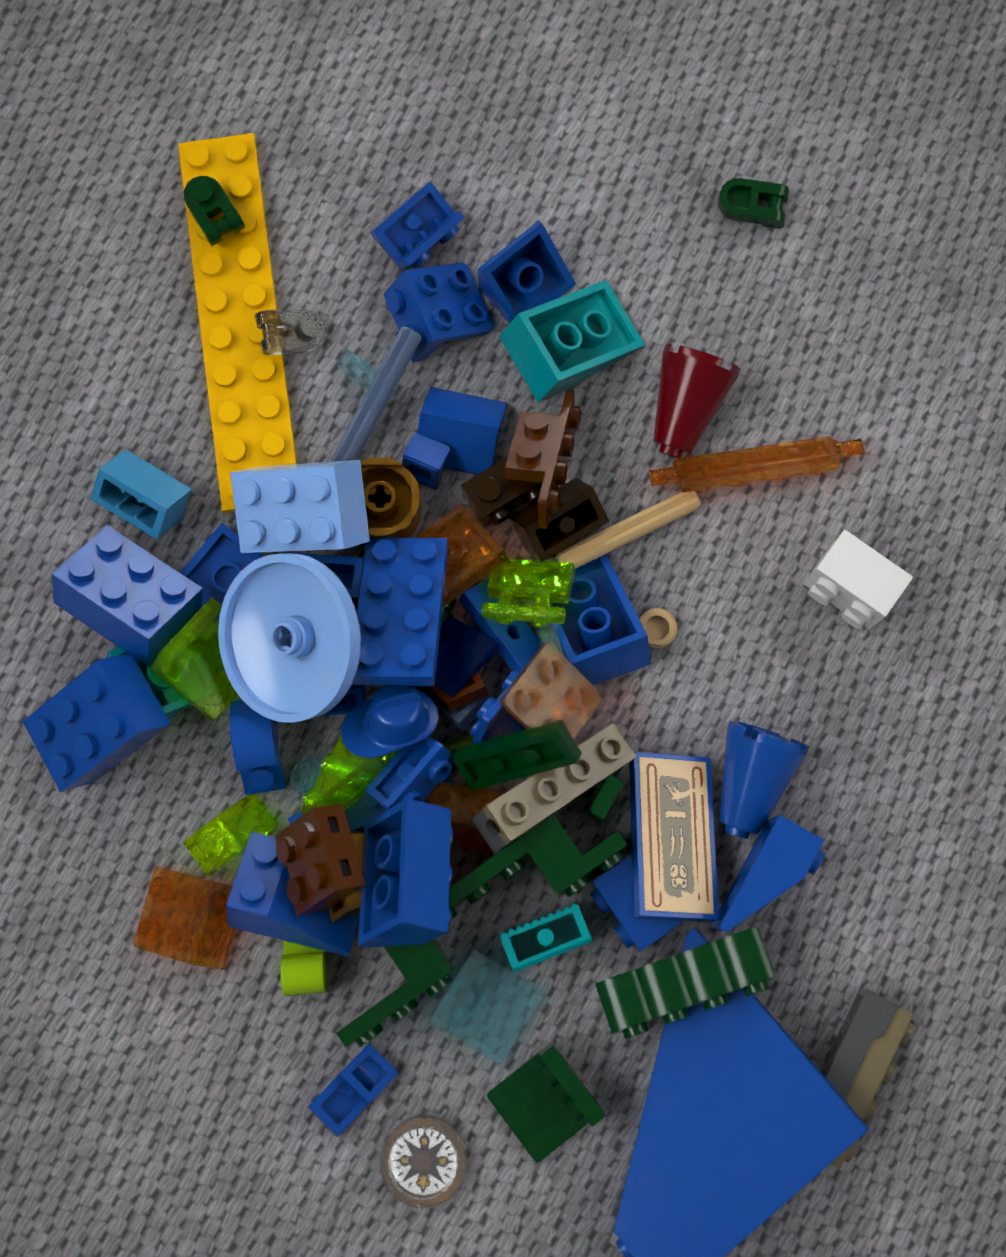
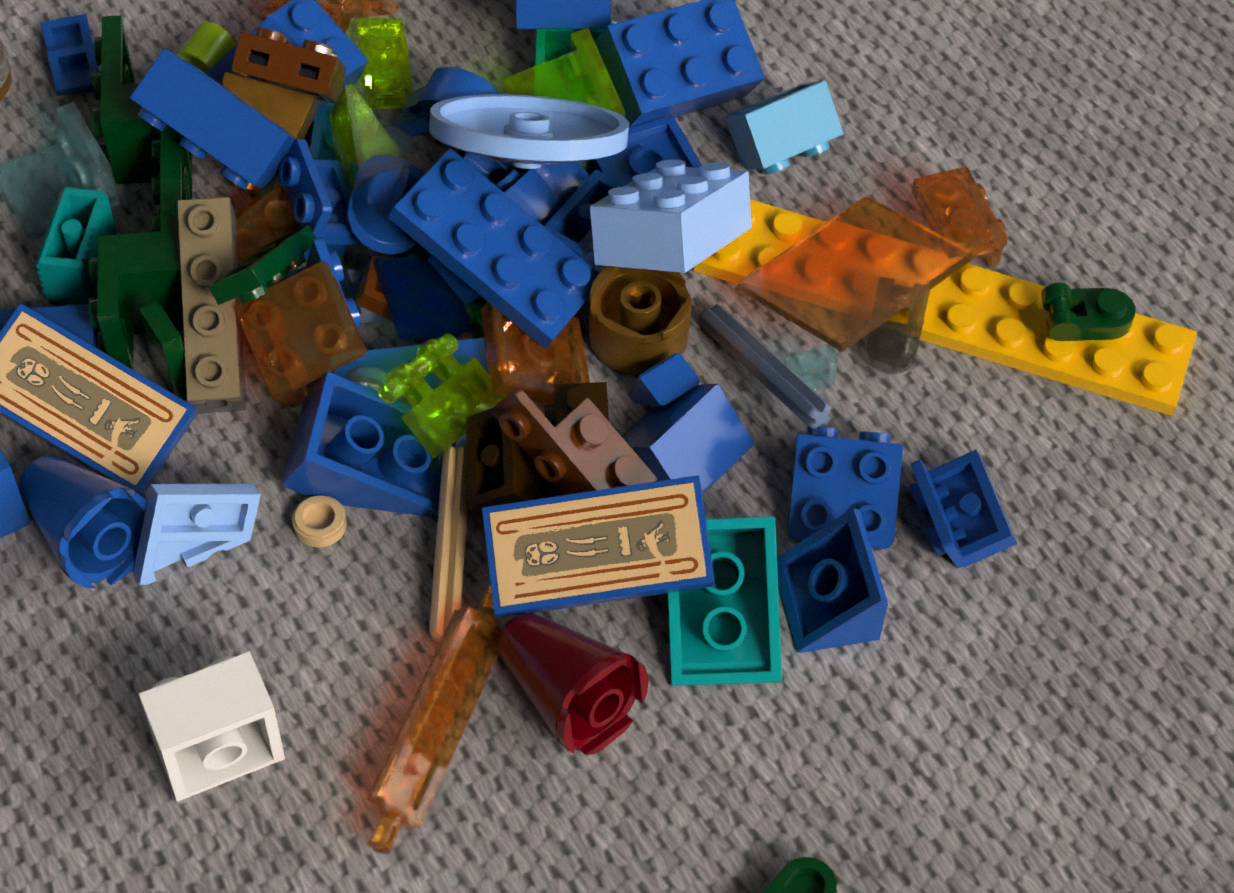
camera: 115 degrees right, 25 degrees down
(163, 332) = (960, 212): none -> clear orange bracket
(267, 371) = (854, 272): none -> clear orange piece
(600, 413) = (598, 546): none -> tile
(720, 698) = (193, 524): none -> light blue wing

